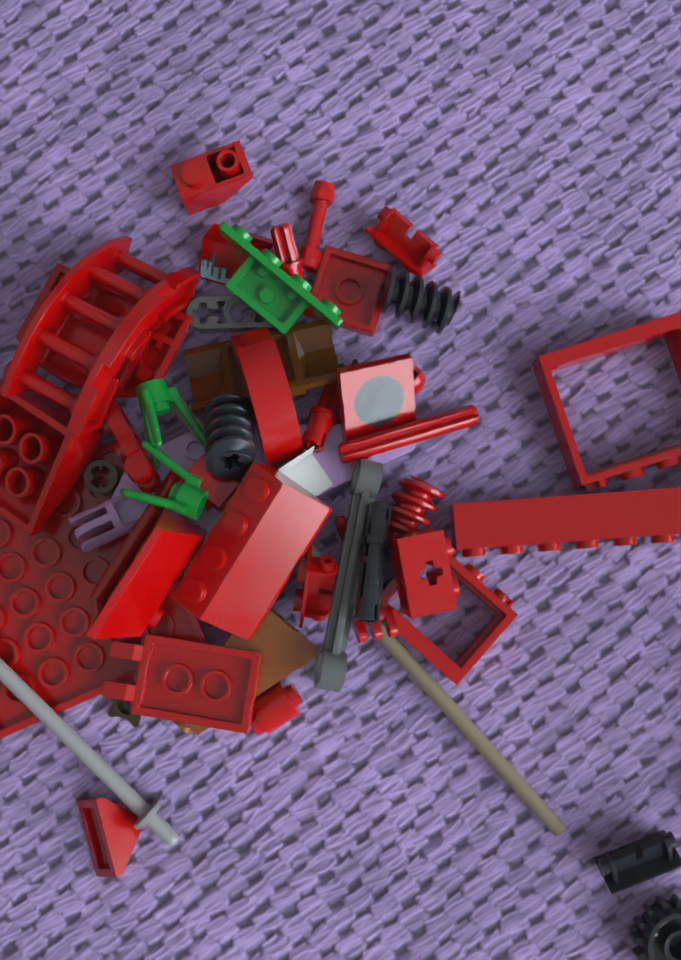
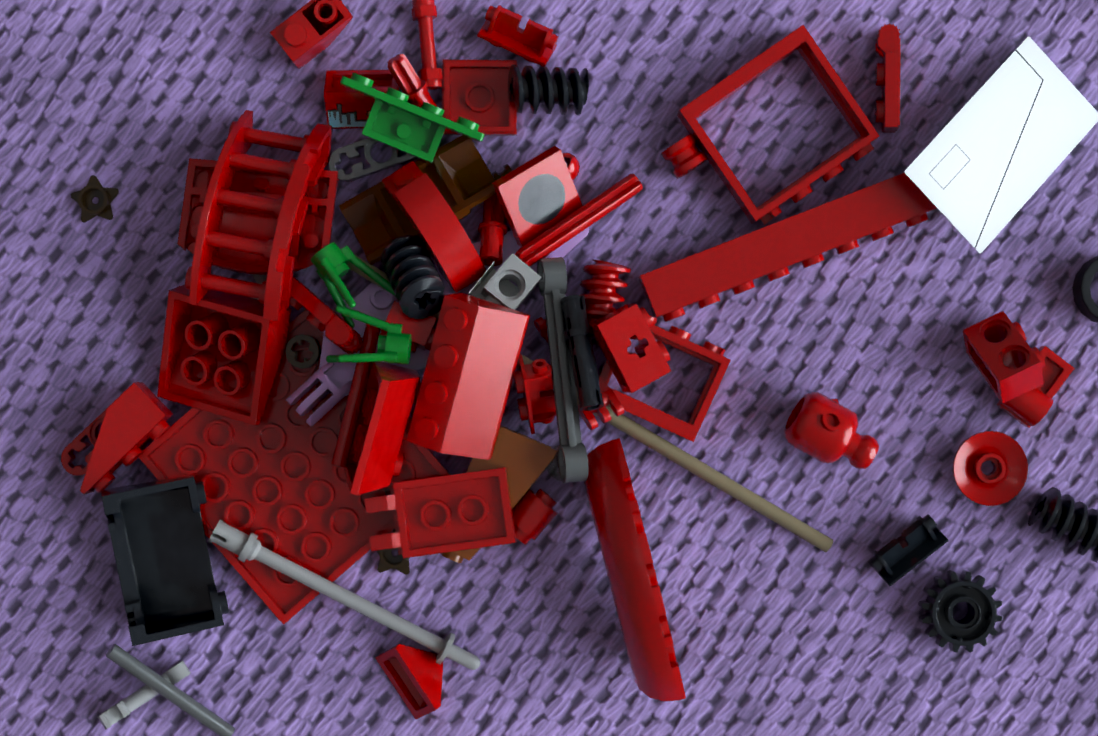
camera: 20 degrees left, 5 degrees up
(333, 463) = (516, 271): none -> light grey brick
(356, 804) = (632, 574): none -> red brick
(528, 403) = (684, 156): none -> red wheel
(594, 716) = (828, 431): none -> red piece

